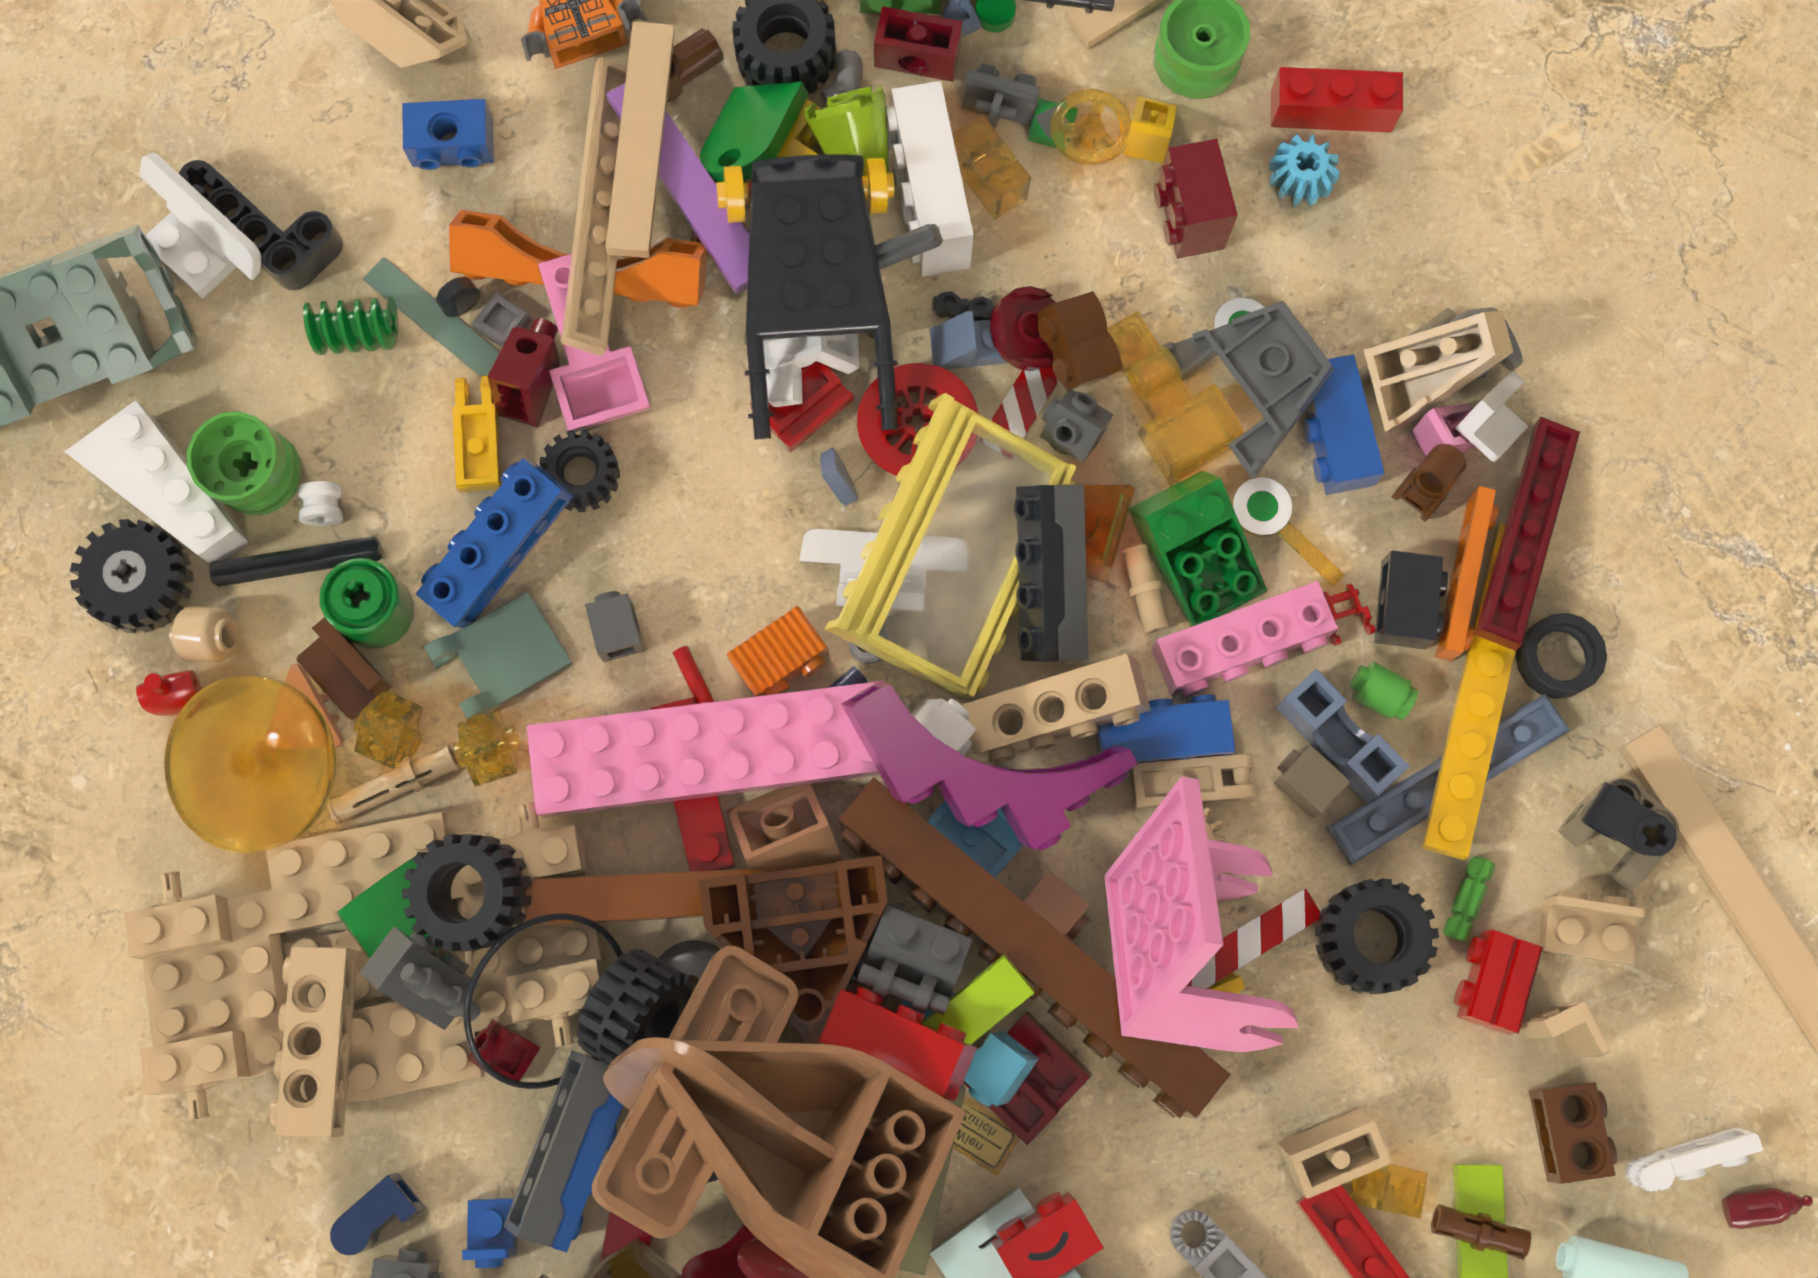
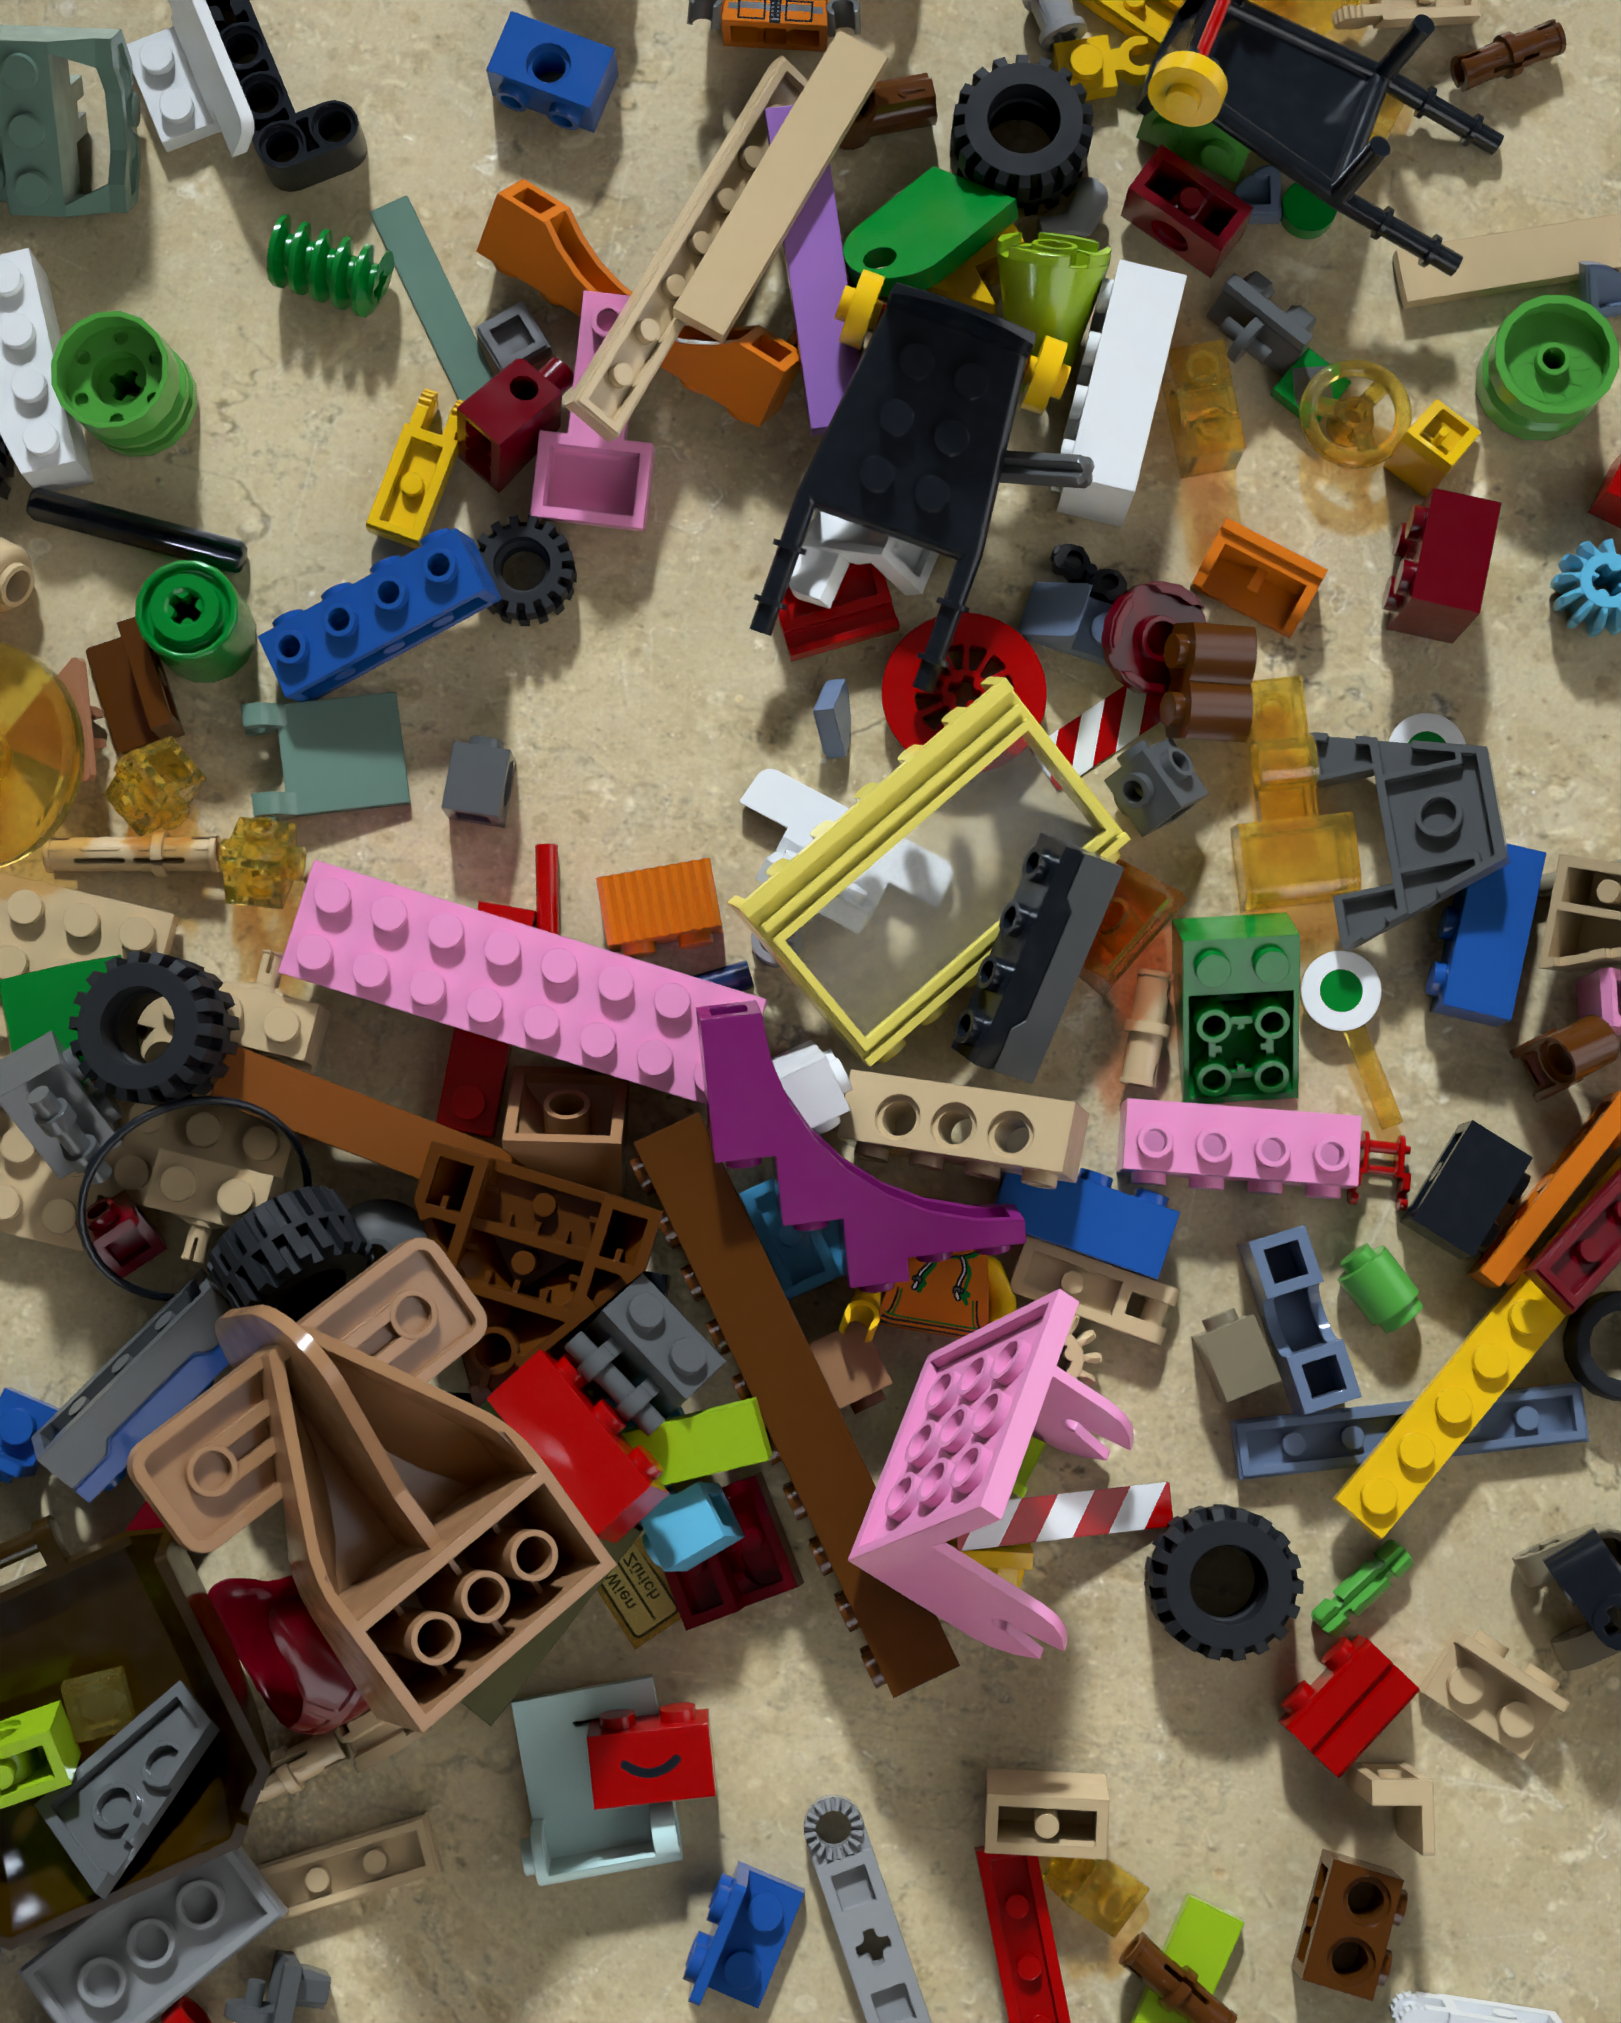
camera: 25 degrees right, 5 degrees up
(320, 503) = (195, 472): white wheel -> none
(458, 296) = (473, 286): black tile -> none
(1078, 260) = (1258, 578): none -> orange hinge
(1096, 833) = (939, 1299): none -> torso

